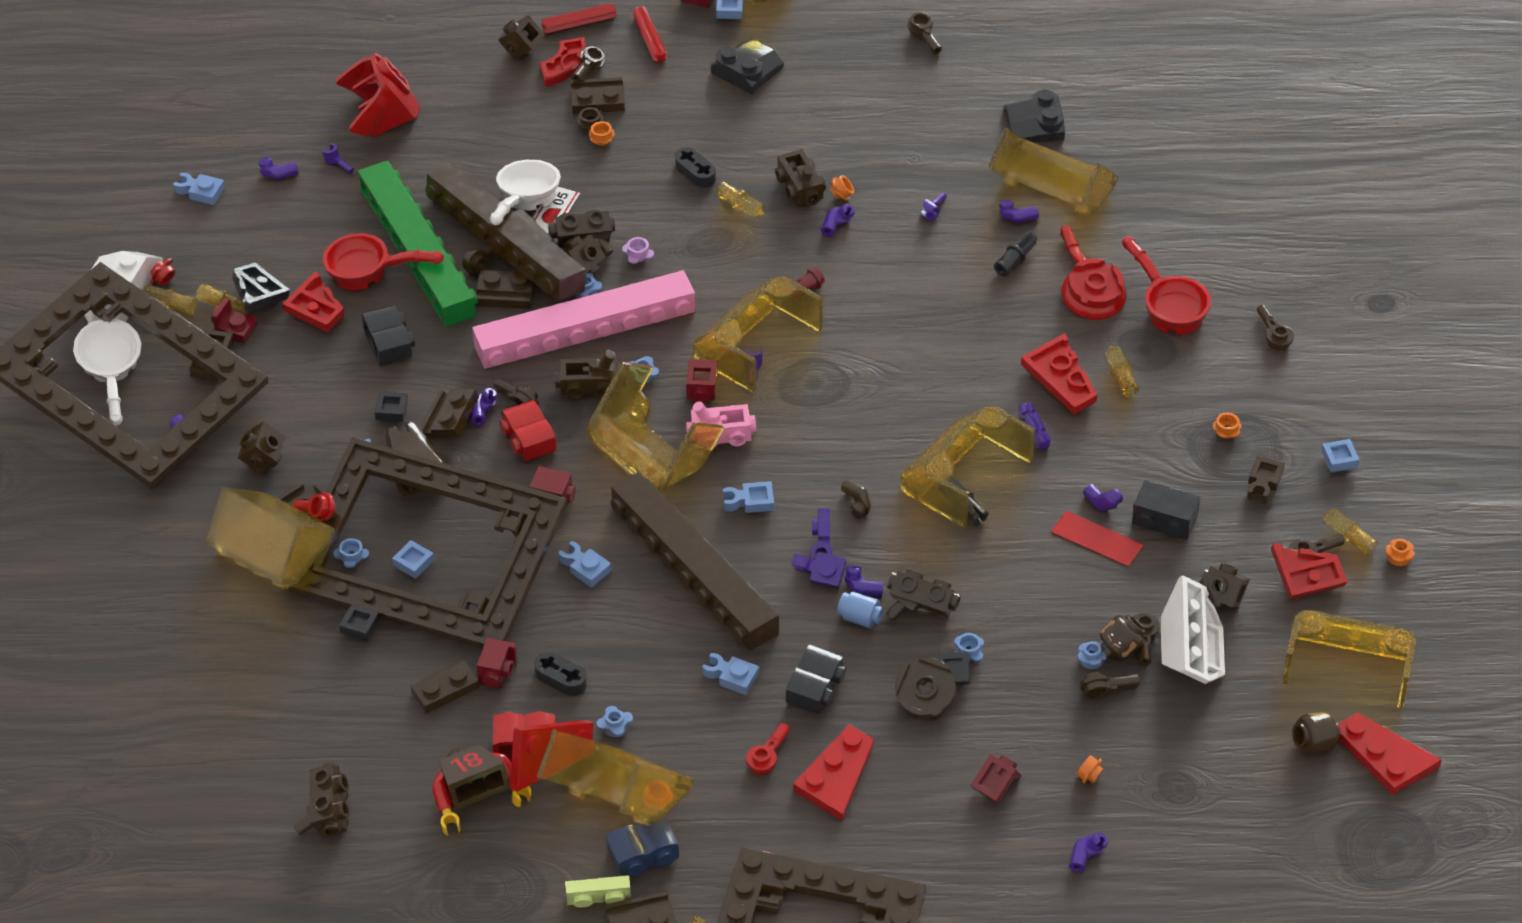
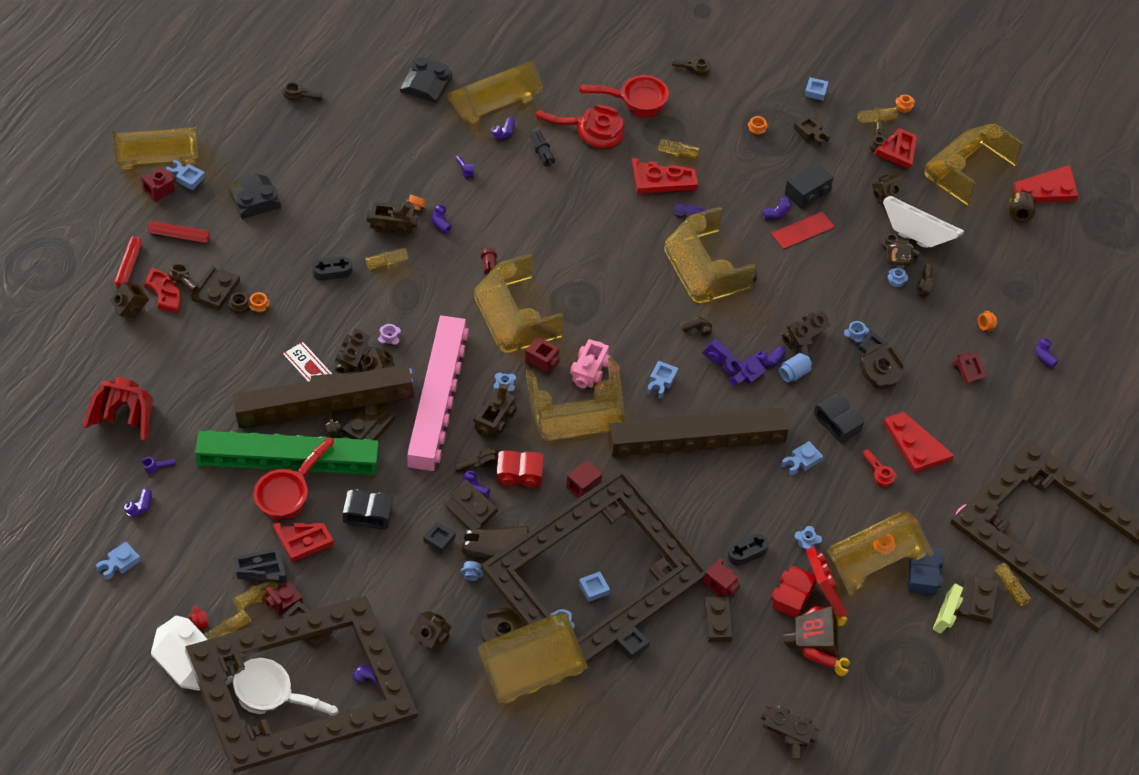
camera: 65 degrees left, 5 degrees up
(319, 506) = (531, 612): red plate -> none
(525, 186) = (285, 363): white piece -> none
(586, 566) = (661, 492): medium blue plate -> none

